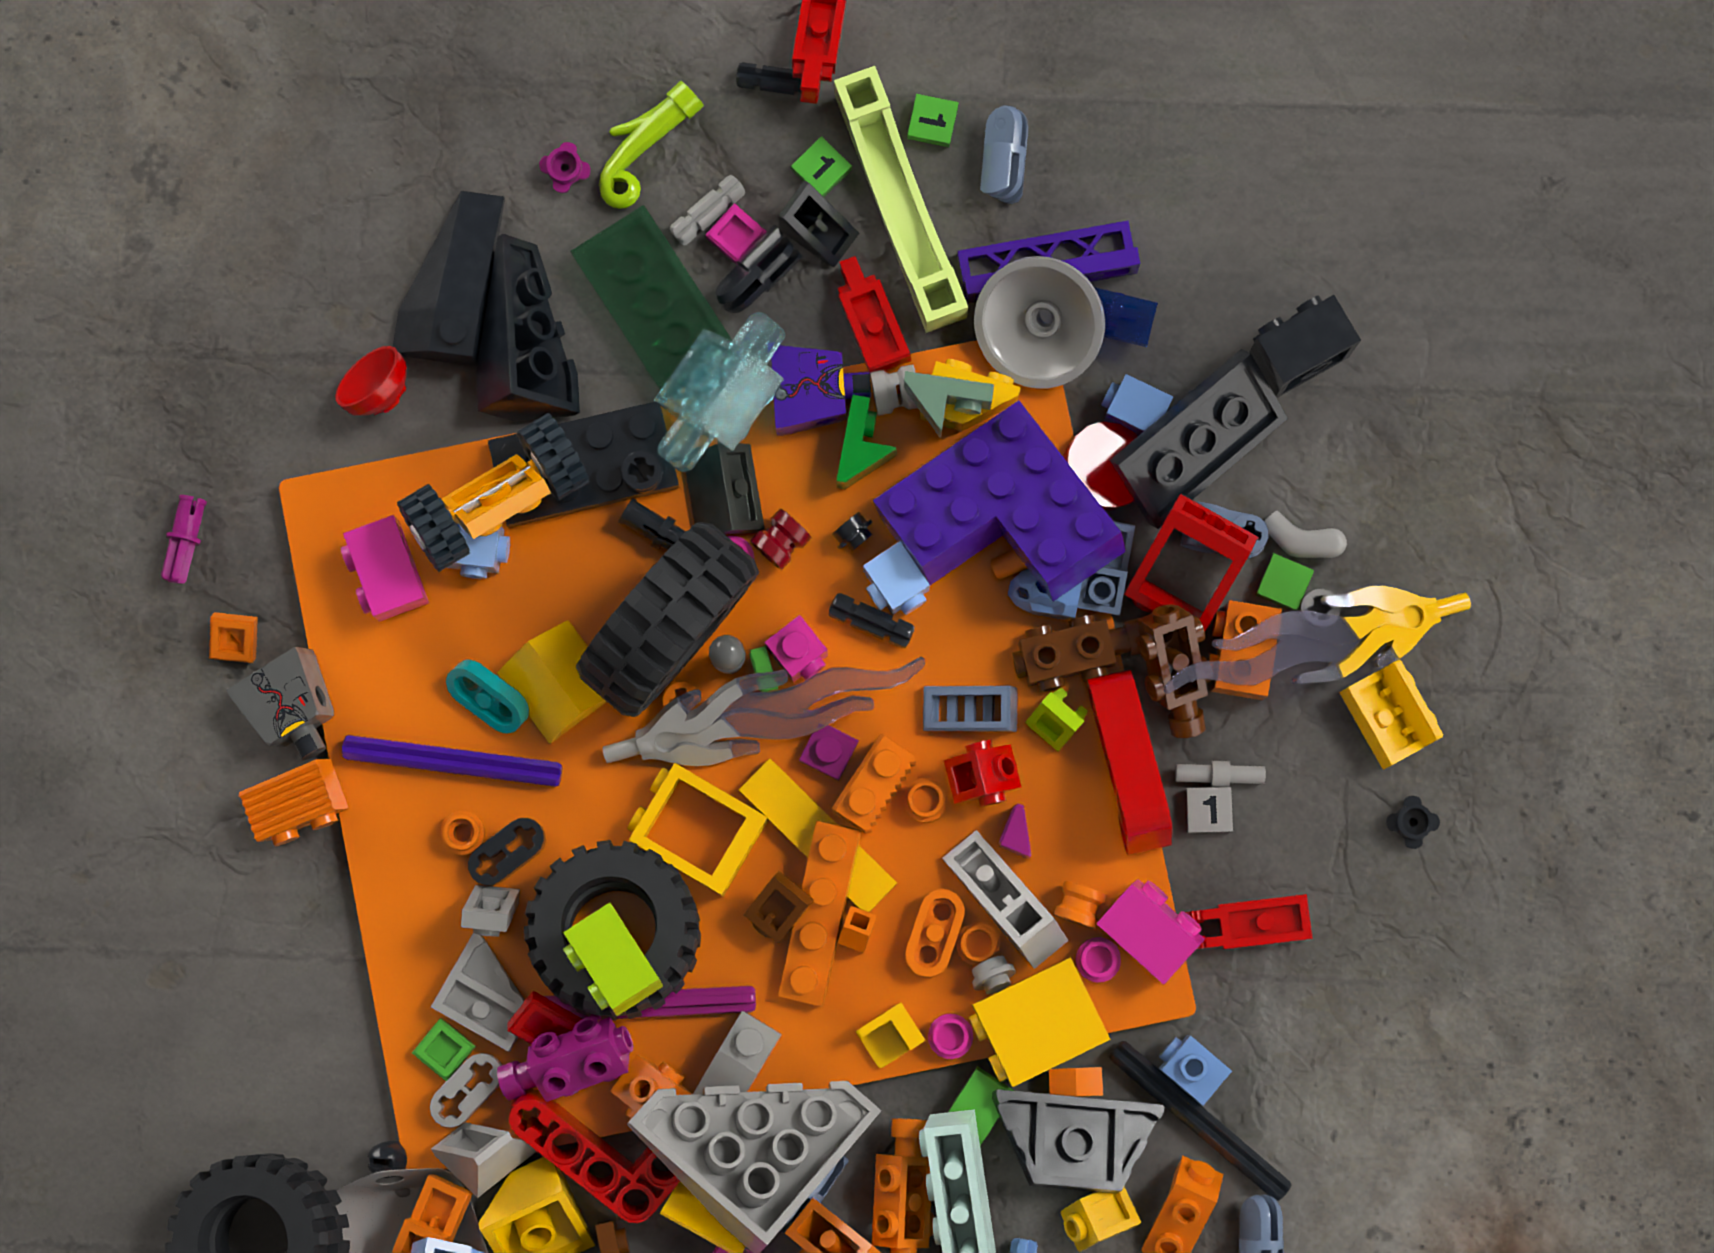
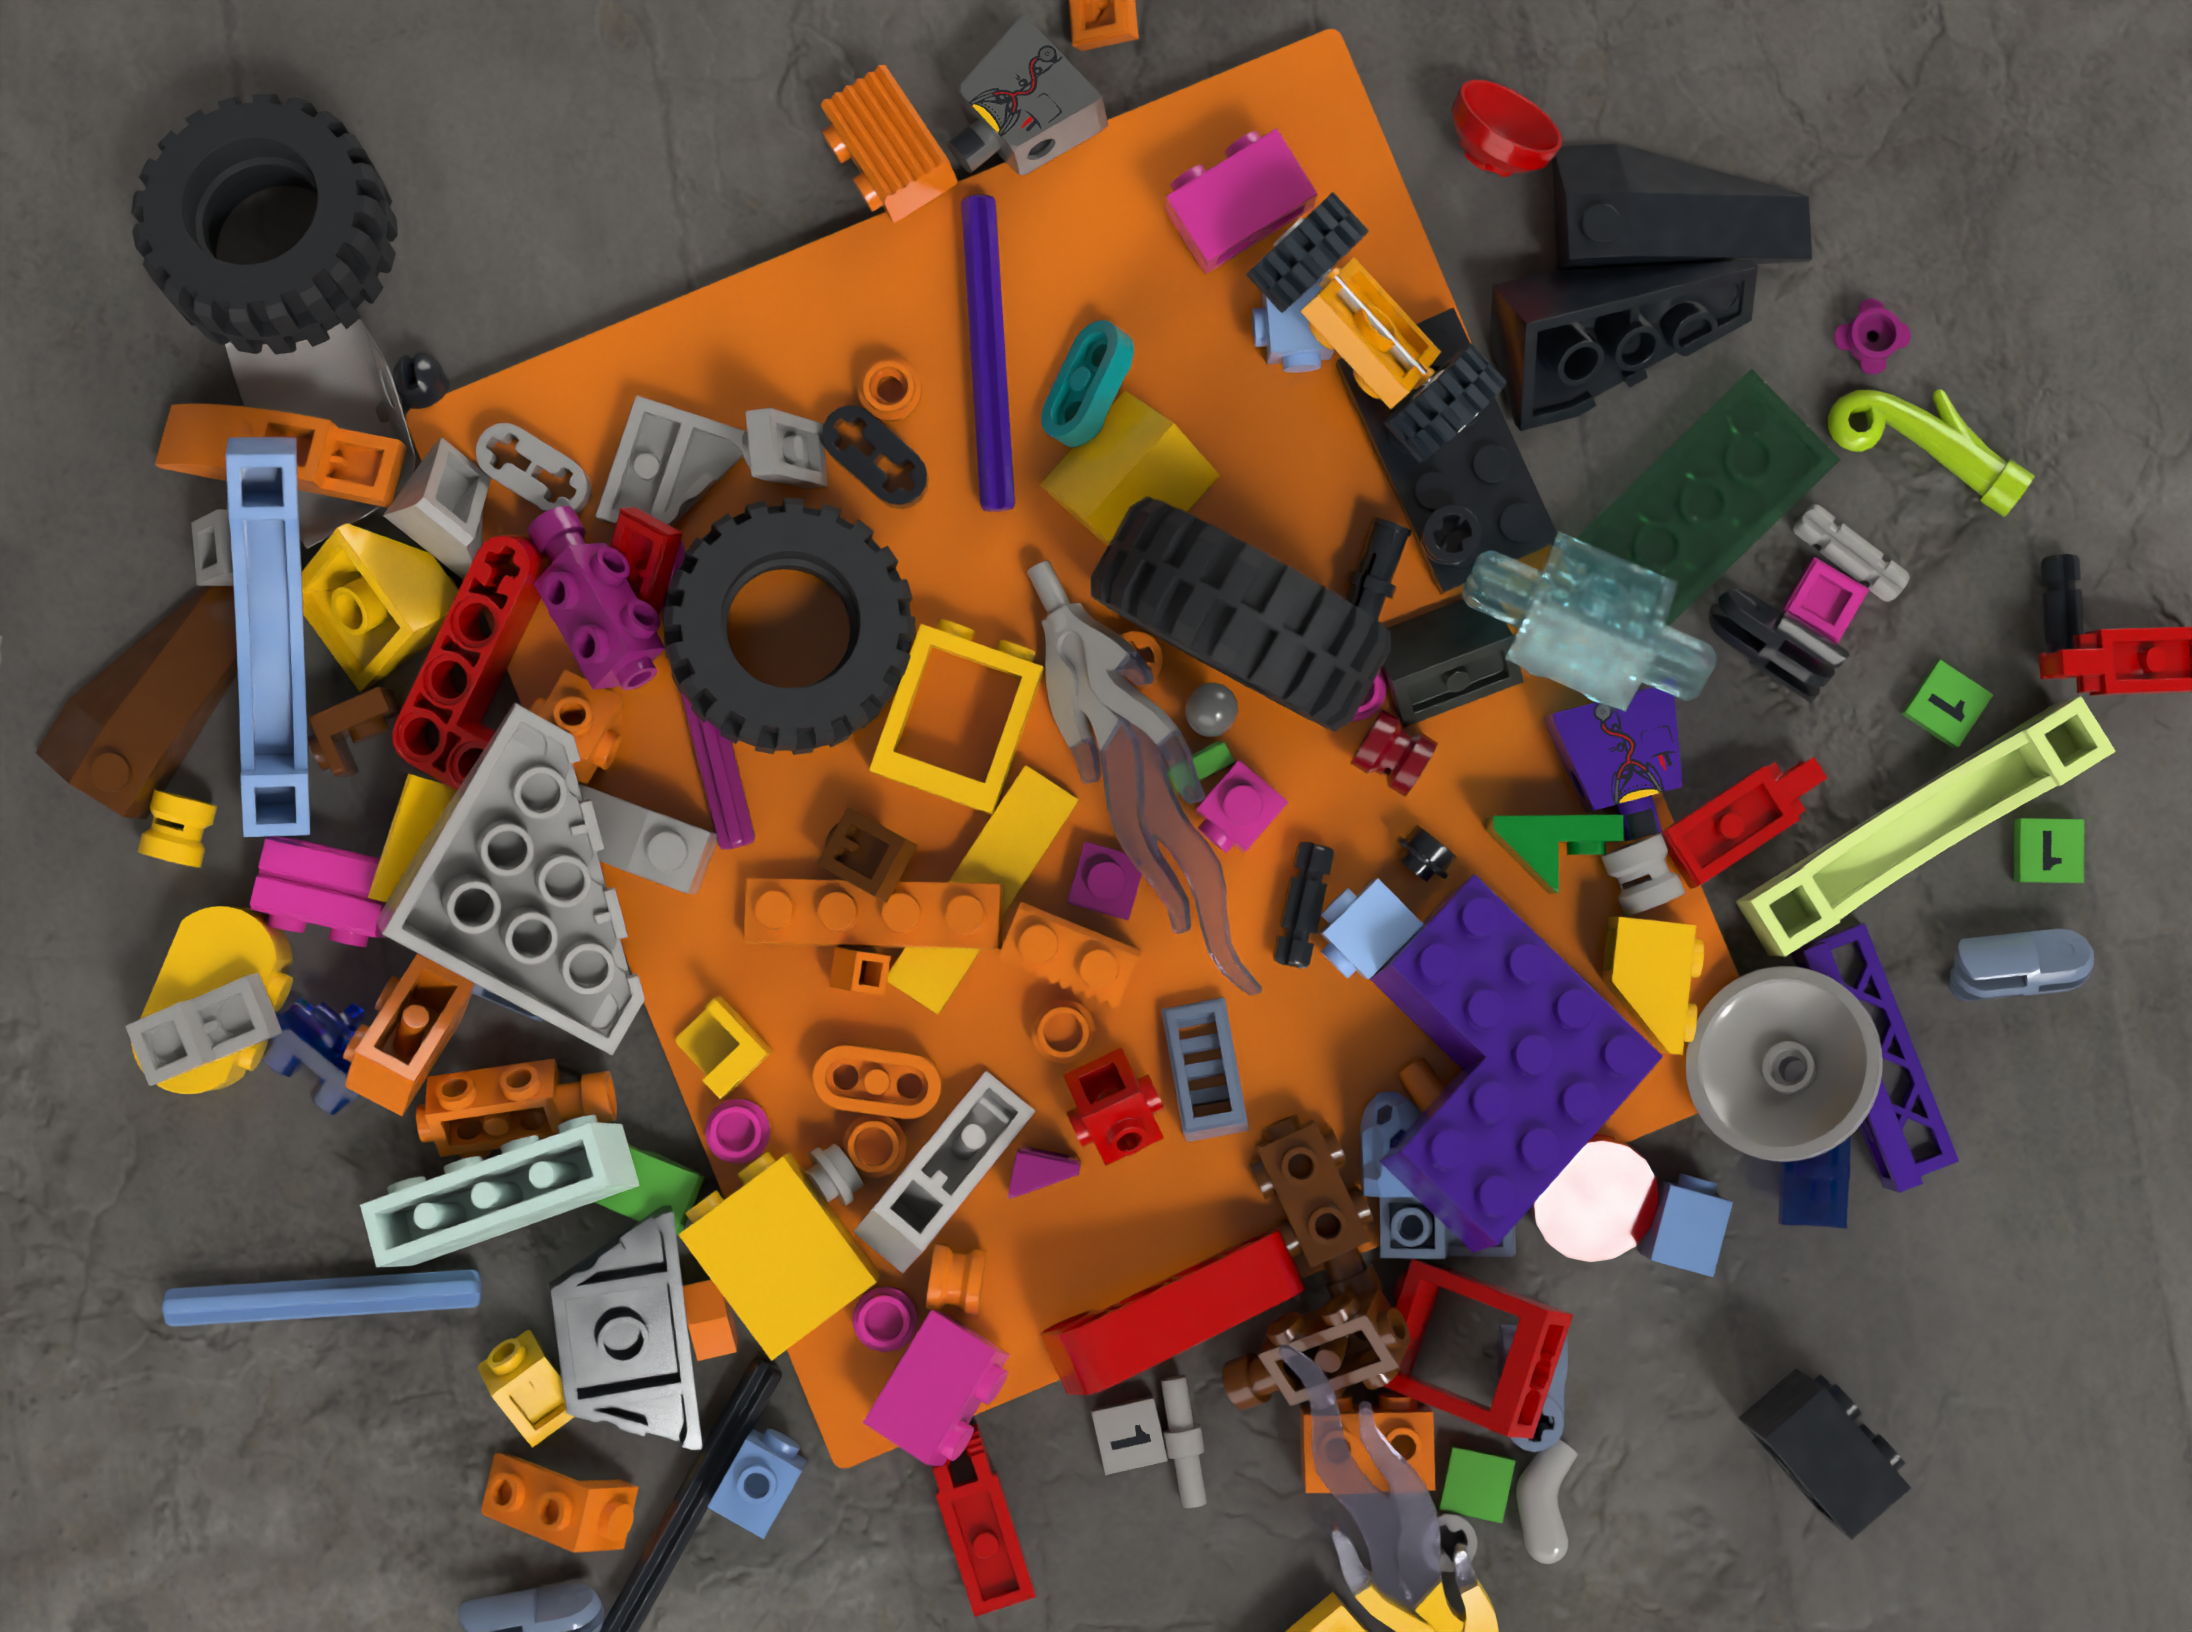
camera: 80 degrees right, 5 degrees up
(444, 1049) = (584, 427): bright green tile -> none
(612, 959) = (733, 633): lime brick -> none
(816, 225) = (1861, 713): black slope -> none
(933, 392) = (1649, 931): sand green slope -> none
(1055, 720) = (1211, 1195): lime tile -> none
(1199, 437) = (1660, 1325): black plate -> none

